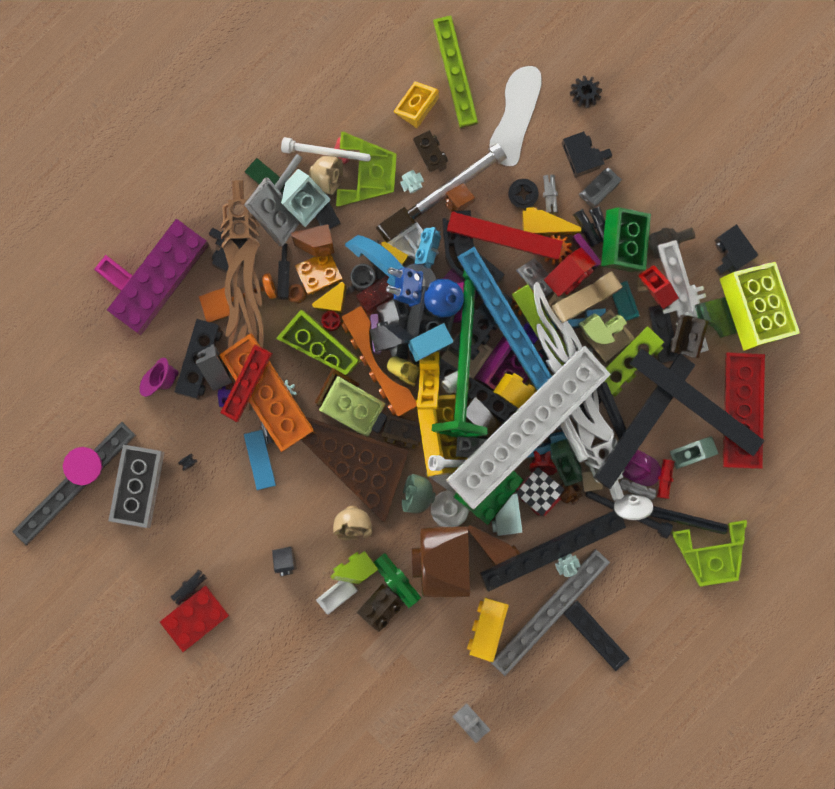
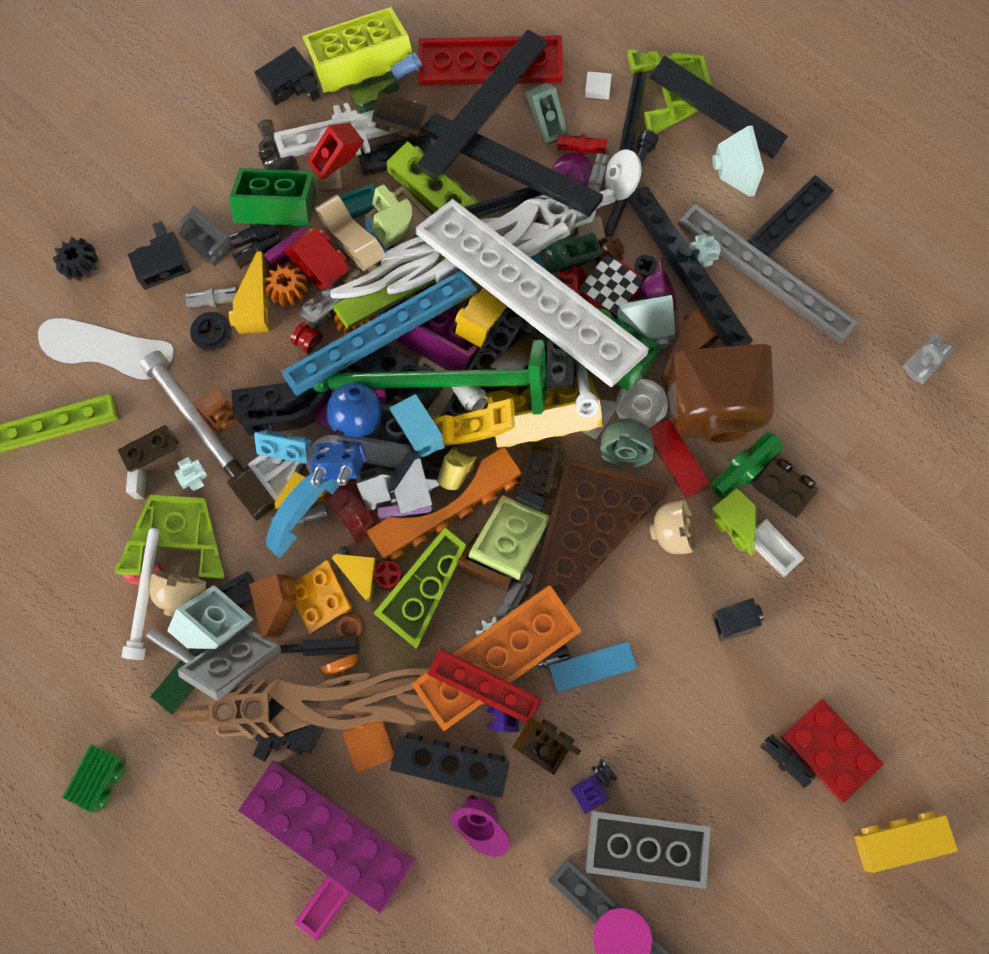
camera: 85 degrees left, 10 degrees down
(131, 658) = (905, 842): none -> yellow brick
(175, 452) = (589, 794): none -> dark purple tile
(204, 123) = (95, 779): none -> green brick
(207, 422) = (543, 745): none -> dark brown bracket
(213, 368) = (463, 739): dark grey hinge -> none
(312, 408) = (515, 594): none -> light grey axle
(362, 277) = (326, 532): dark grey wheel -> none
(406, 143) = (136, 484): none -> white tile
(406, 531) = (678, 459): none -> red tile
(417, 103) = (80, 474): yellow slope -> none
(487, 629) = (804, 339): yellow slope -> none
(504, 236) = (266, 343): red tile -> none
(512, 264) = (306, 337): none -> red wheel
(536, 529) = (658, 285): none -> magenta piece
(556, 513) = (648, 264): none -> black bush
(640, 597) = (740, 161): none -> light aqua slope
(690, 587) = (716, 105): none -> black tile
(718, 495) = (598, 85): none -> white tile
(737, 343) = (406, 65): none -> medium blue pin

